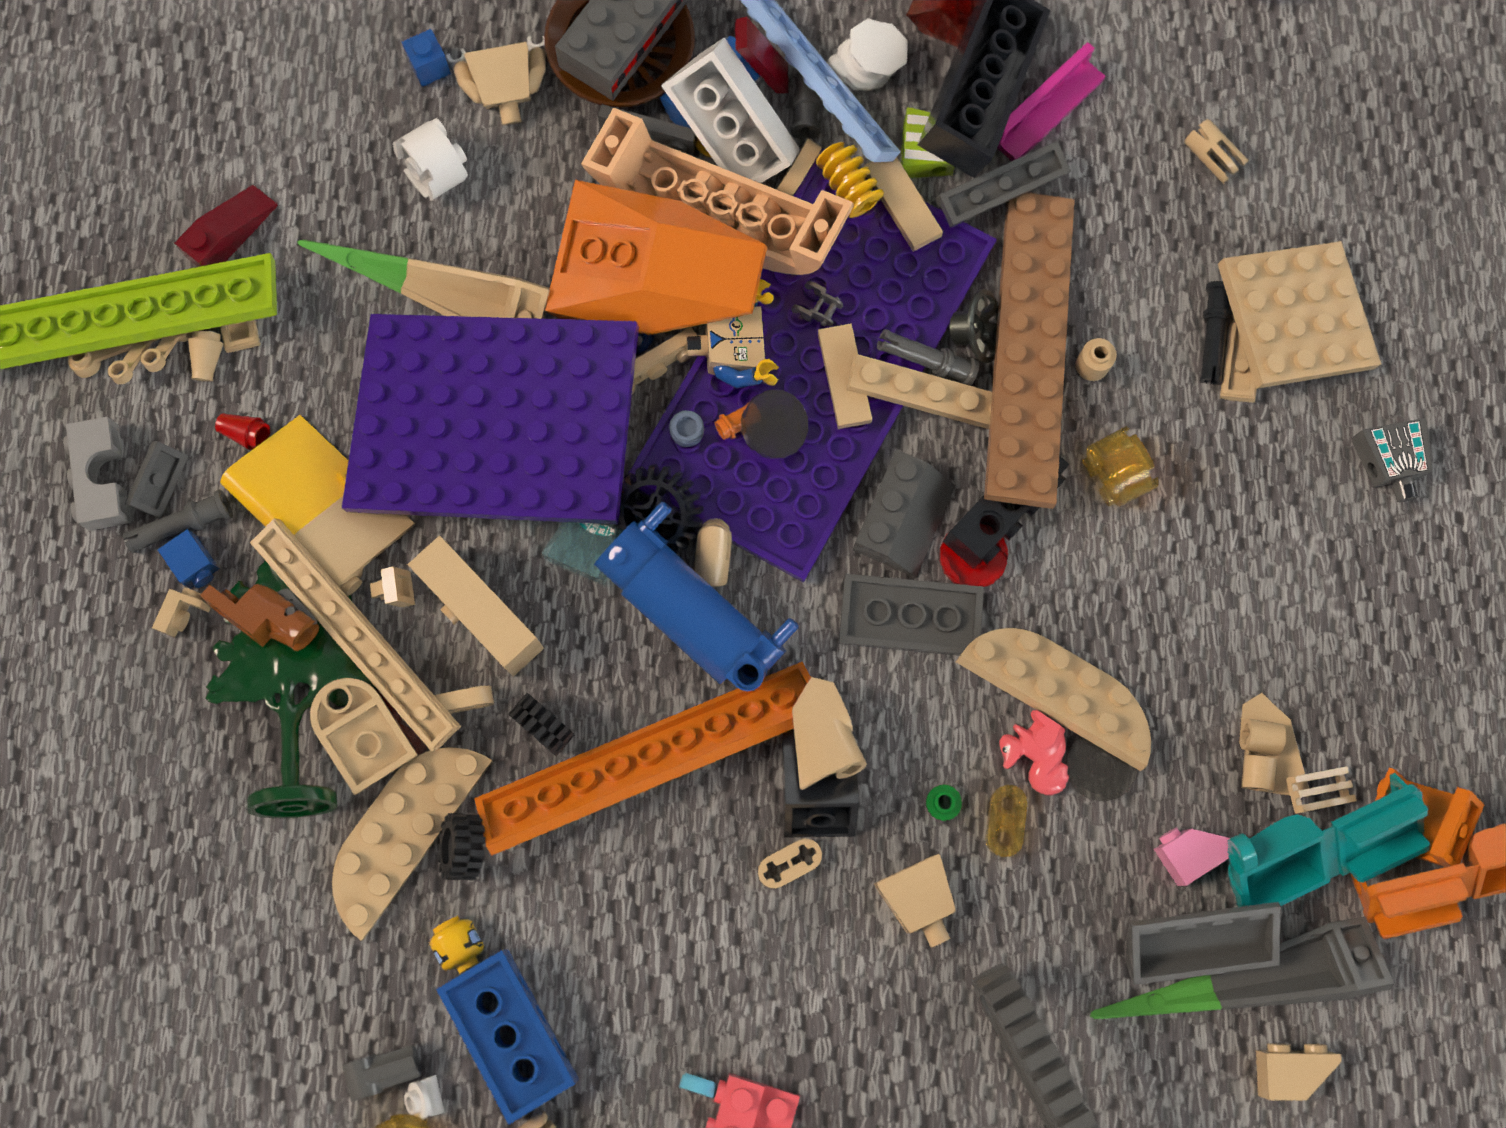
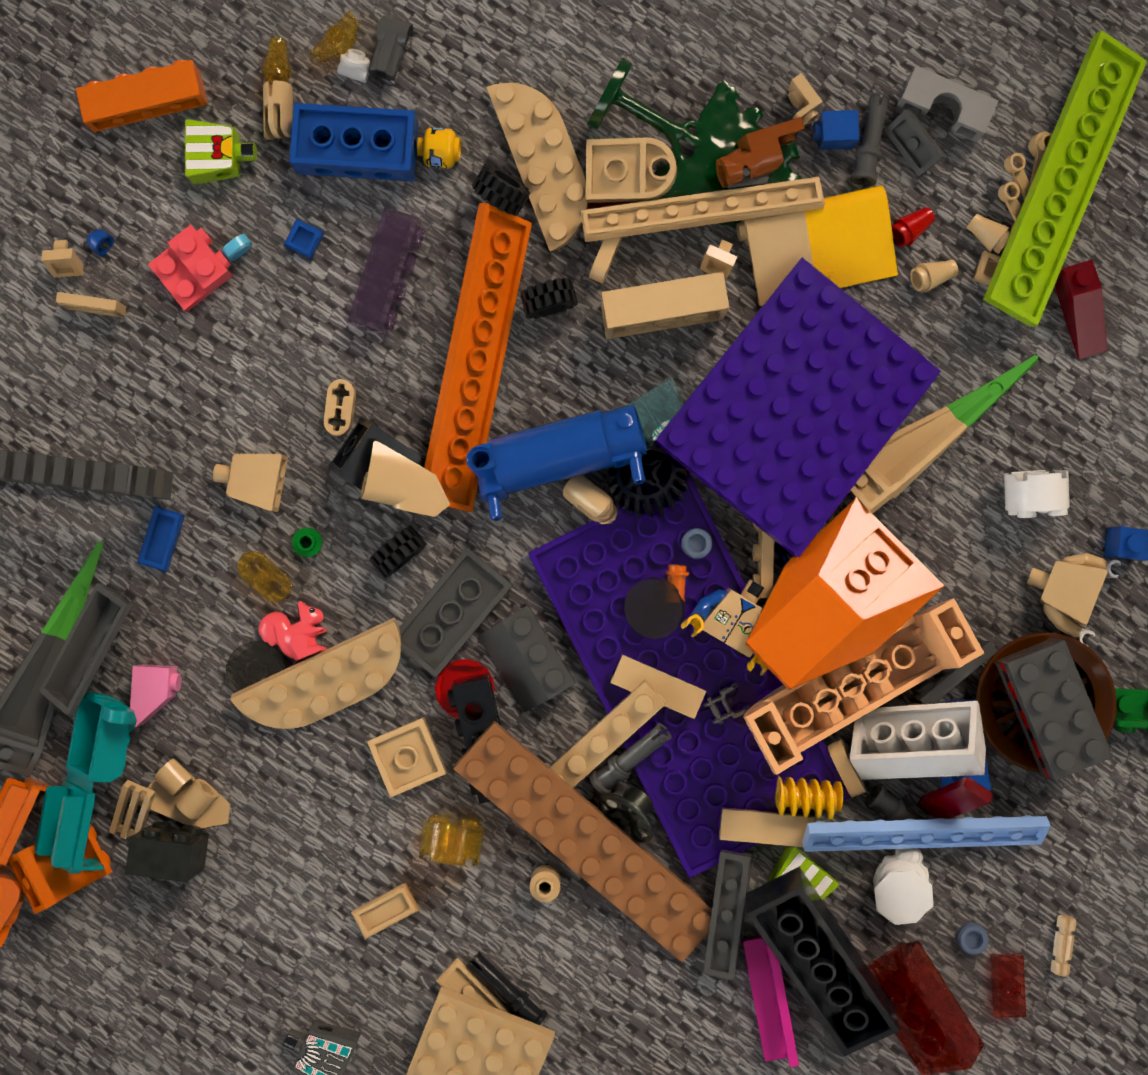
camera: 130 degrees right, 10 degrees up
(280, 382) = (932, 274): none -> tan cone
(620, 910) = (386, 271): none -> clear purple brick
(642, 1023) = (304, 239): none -> blue tile
(891, 701) = (397, 551): none -> black tyre
(1044, 954) = (161, 538): none -> blue tile
(1075, 564) = (407, 757): none -> tan plate
(1228, 490) = (385, 910): none -> tan tile
(1331, 724) = (167, 852): none -> pearl dark grey brick

